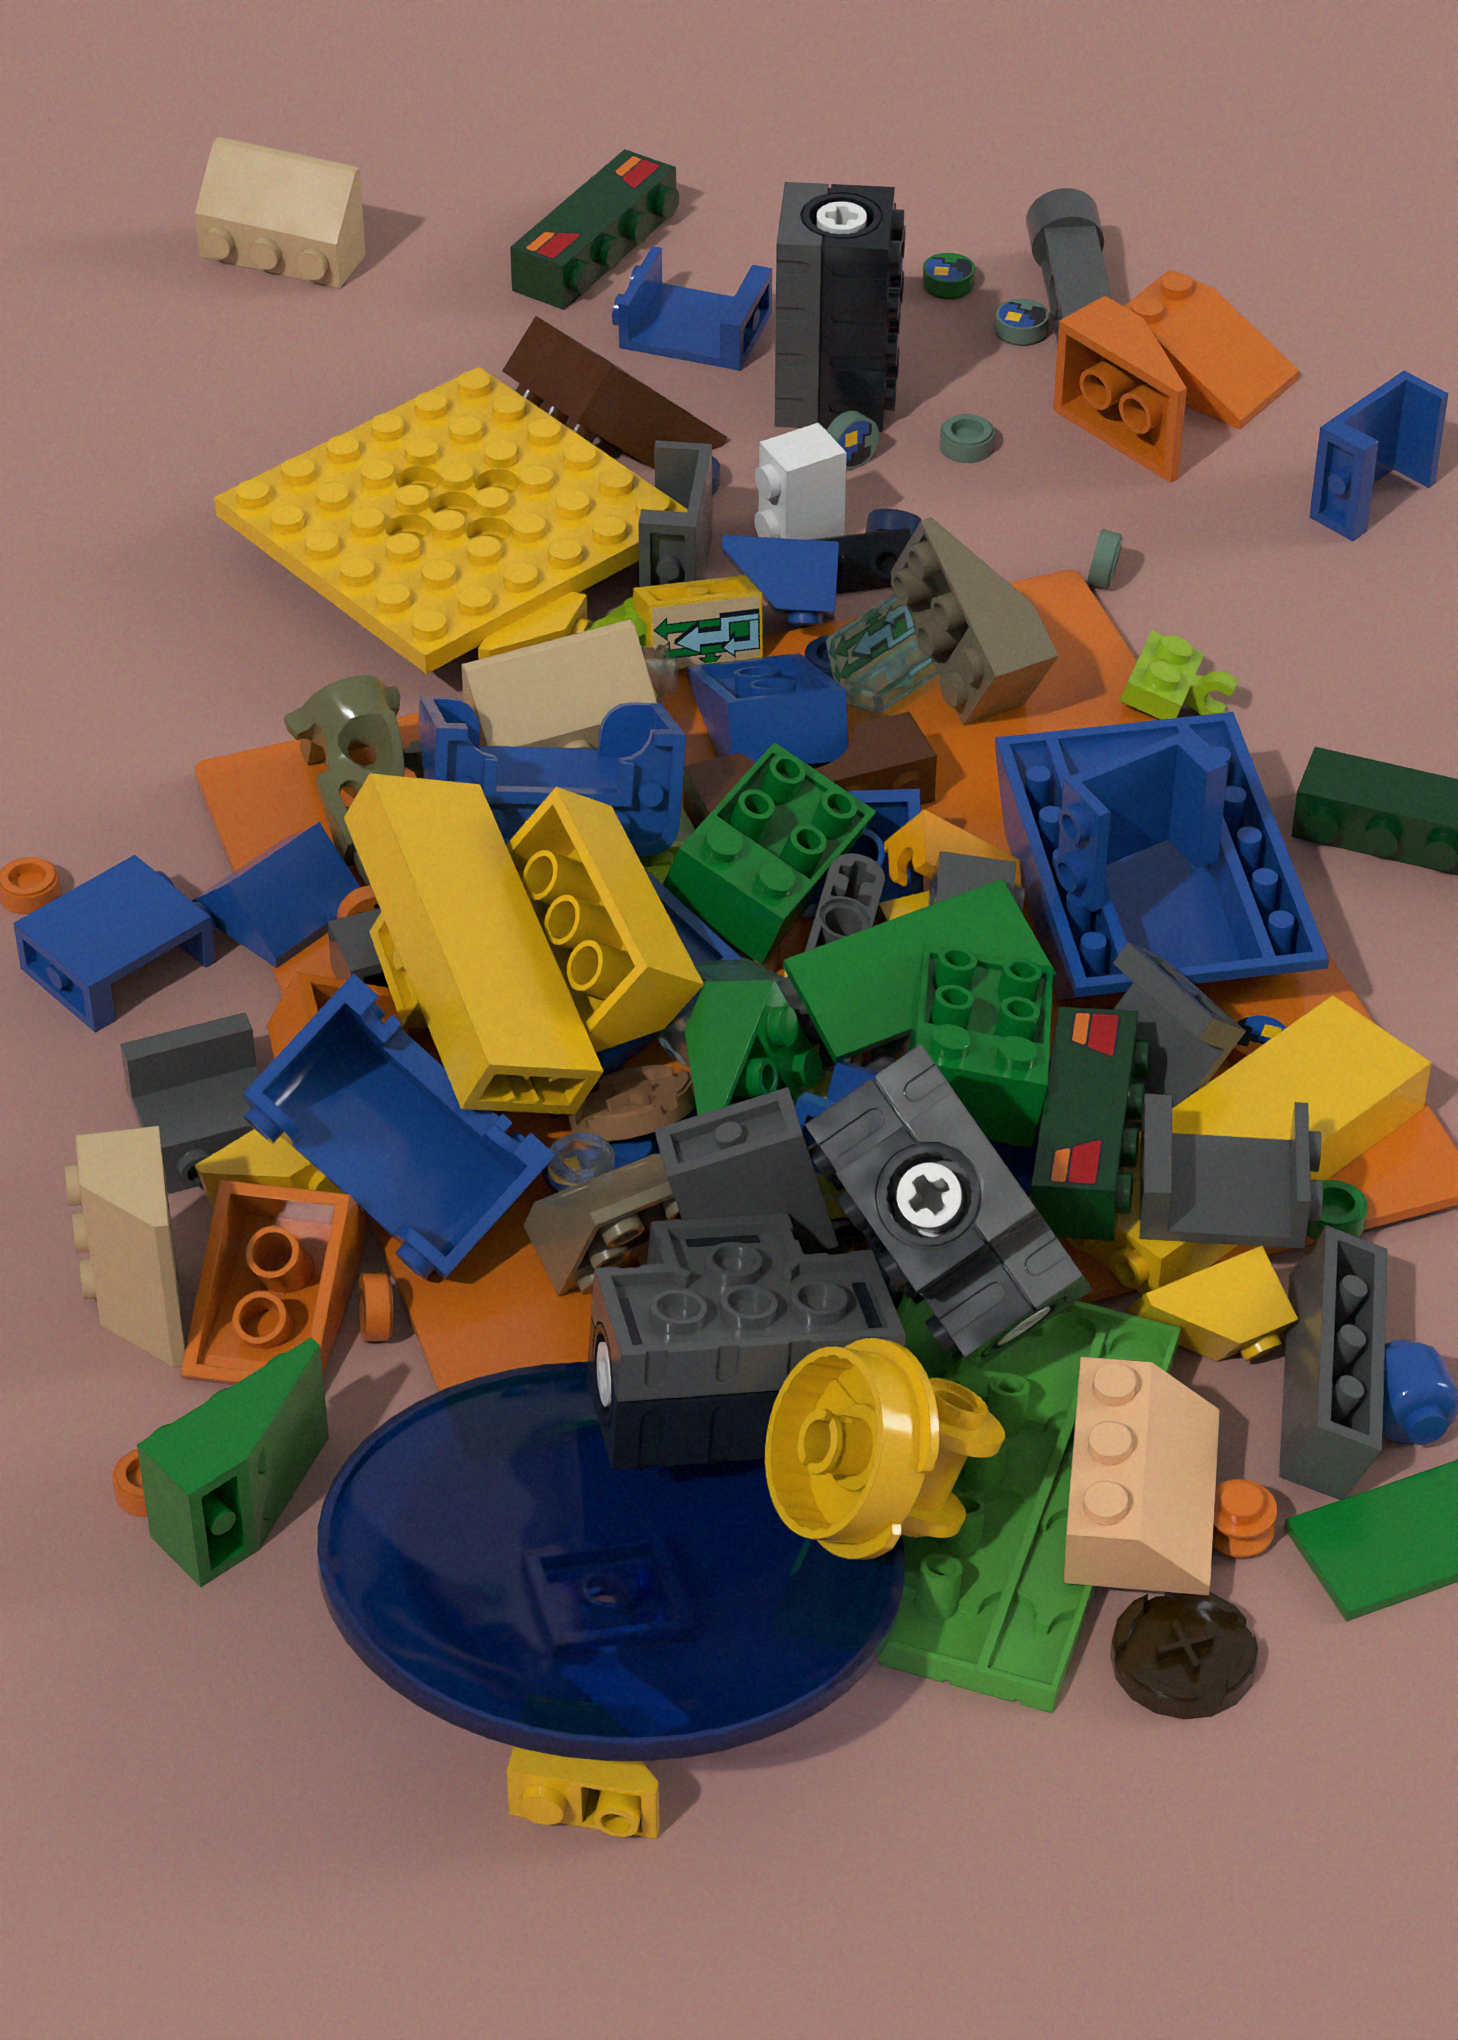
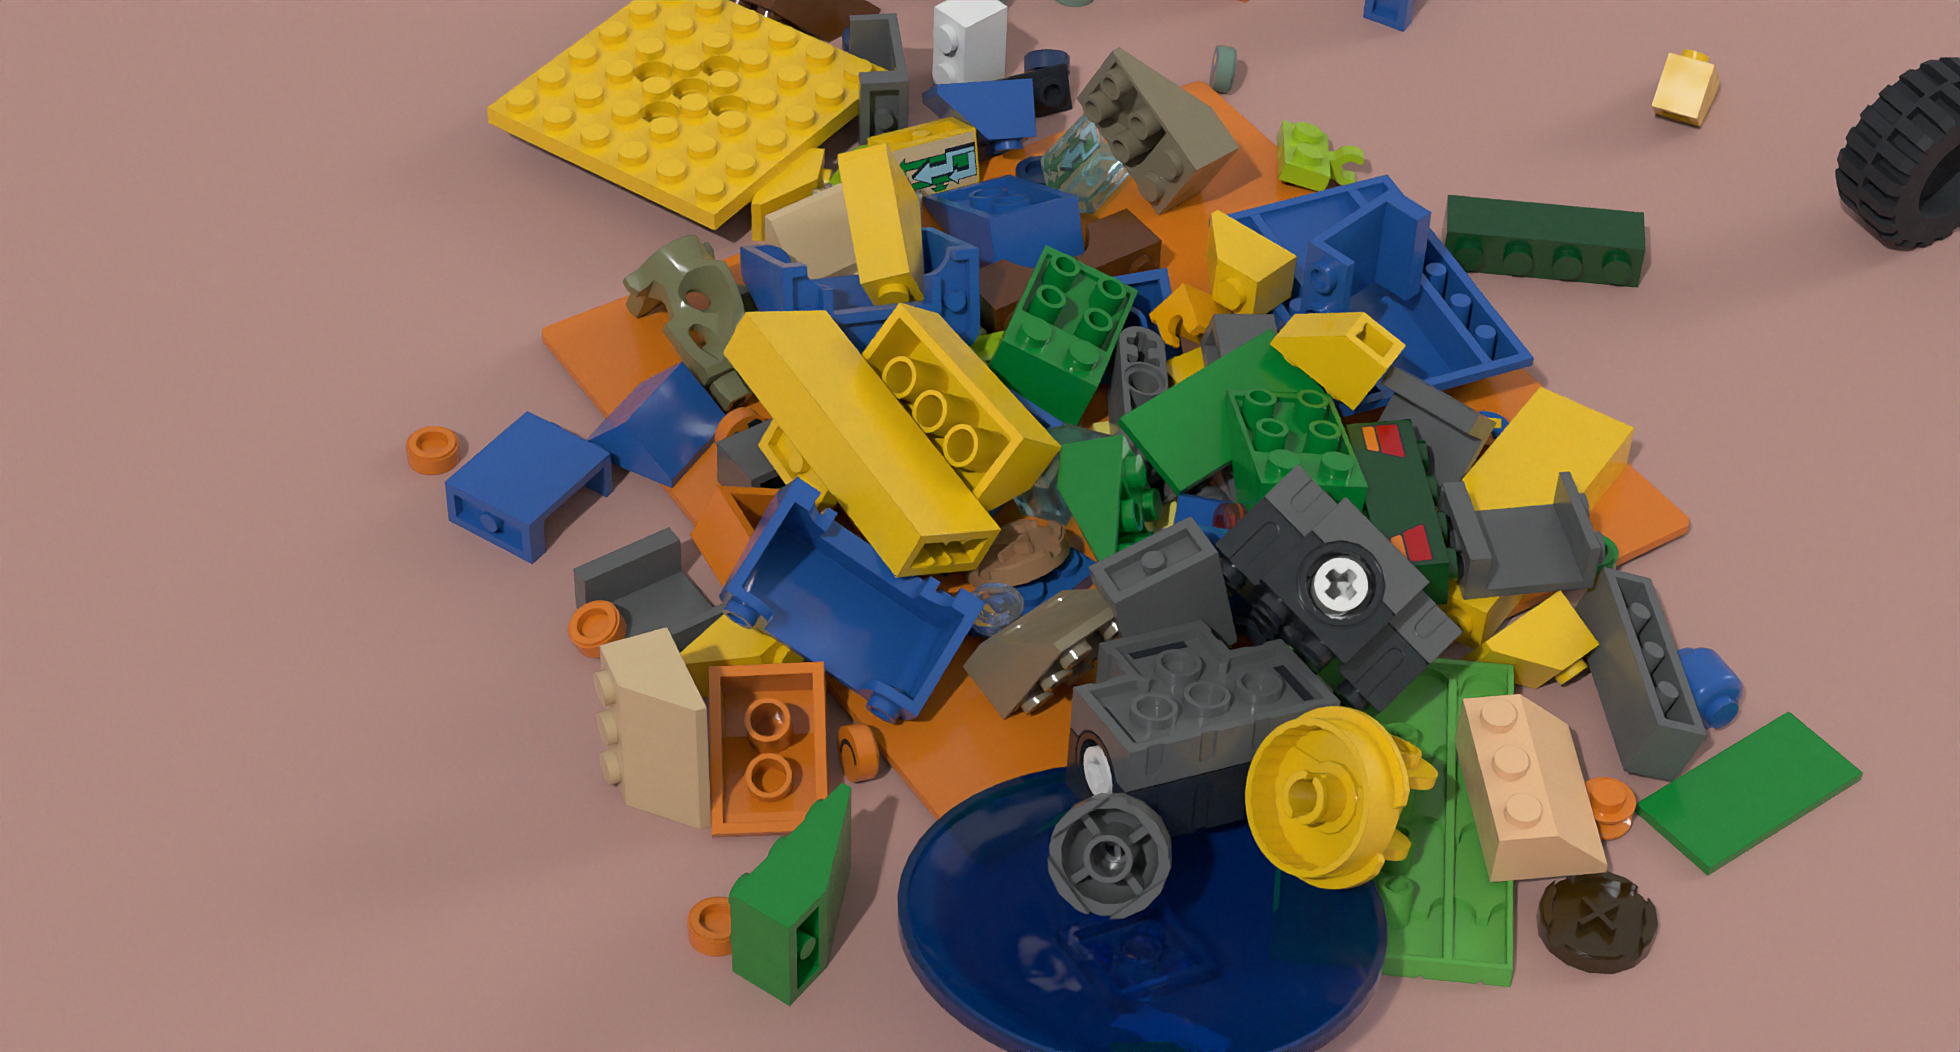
camera: 15 degrees left, 0 degrees up
(134, 1108) = (596, 625): none -> orange tile
(578, 1472) = (1105, 878): none -> dark grey cylinder
(590, 692) = (883, 225): none -> yellow slope
(1007, 803) = (1246, 268): none -> yellow slope
(1072, 918) = (1339, 351): none -> yellow slope

